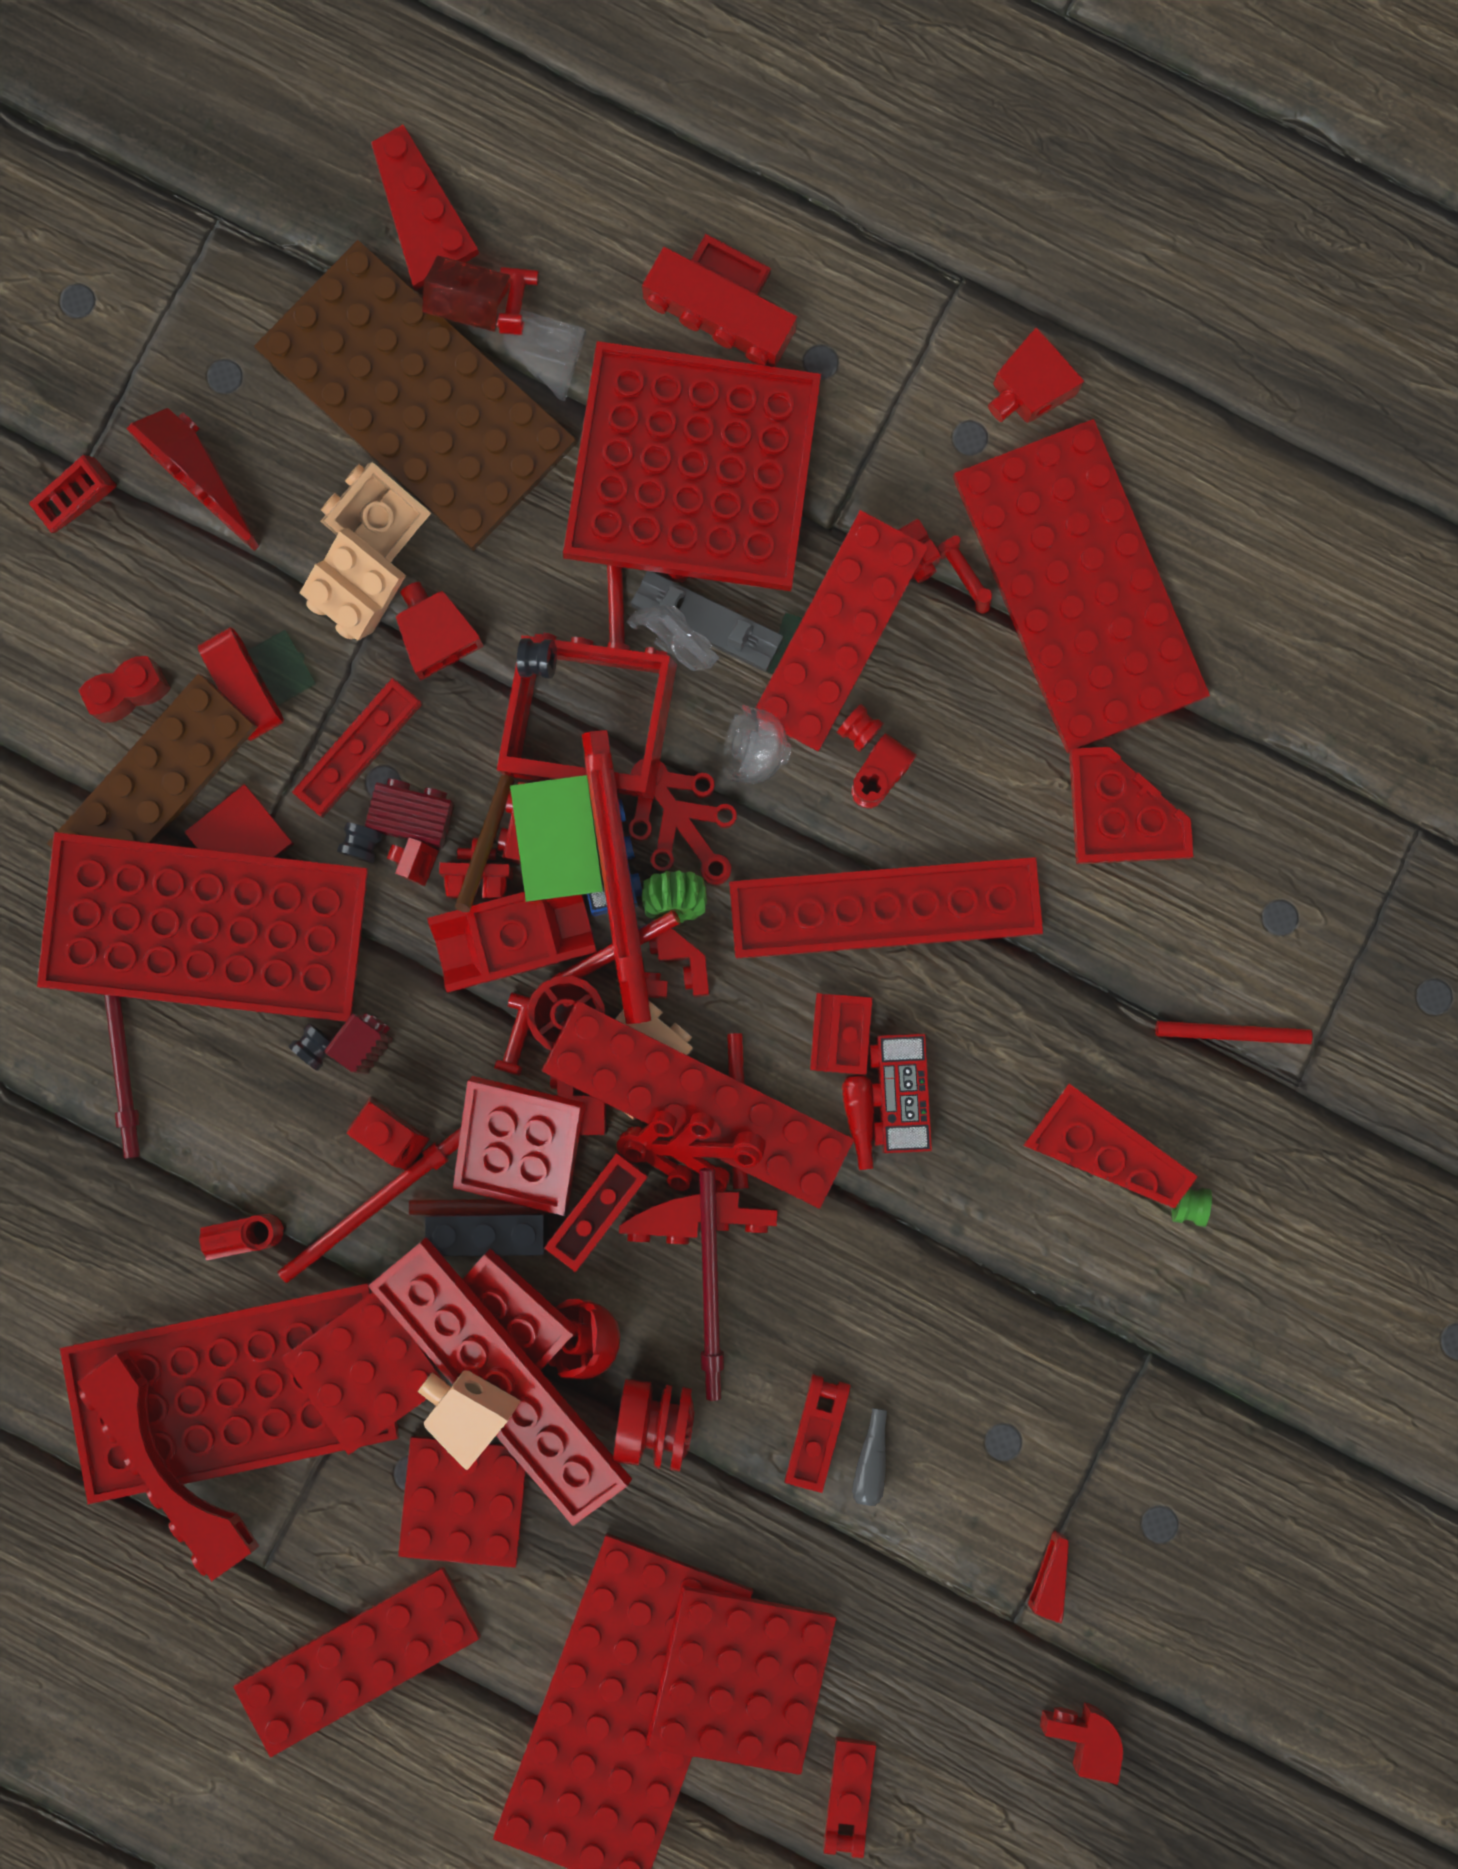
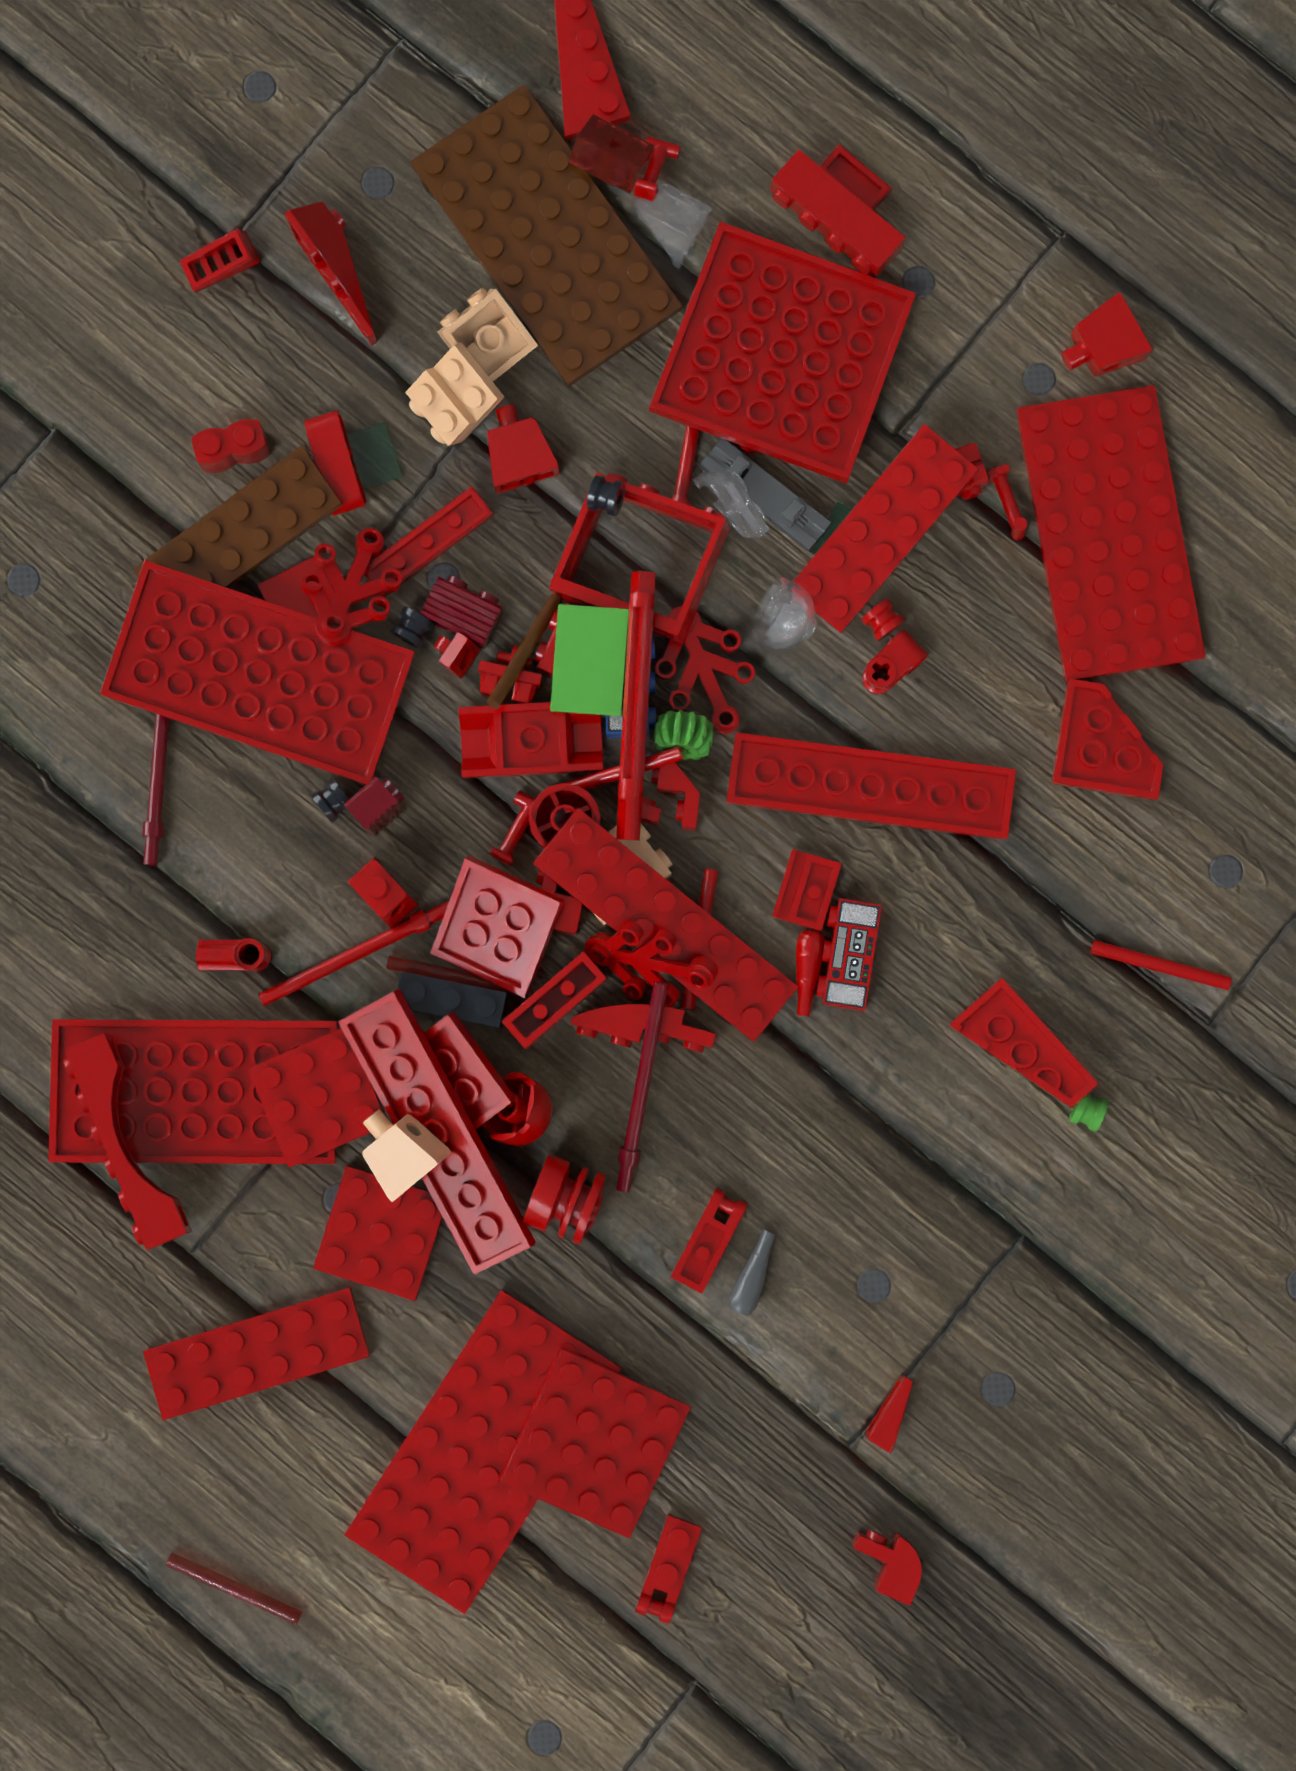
camera: 15 degrees right, 0 degrees up
(283, 817) = (349, 590): none -> red plant

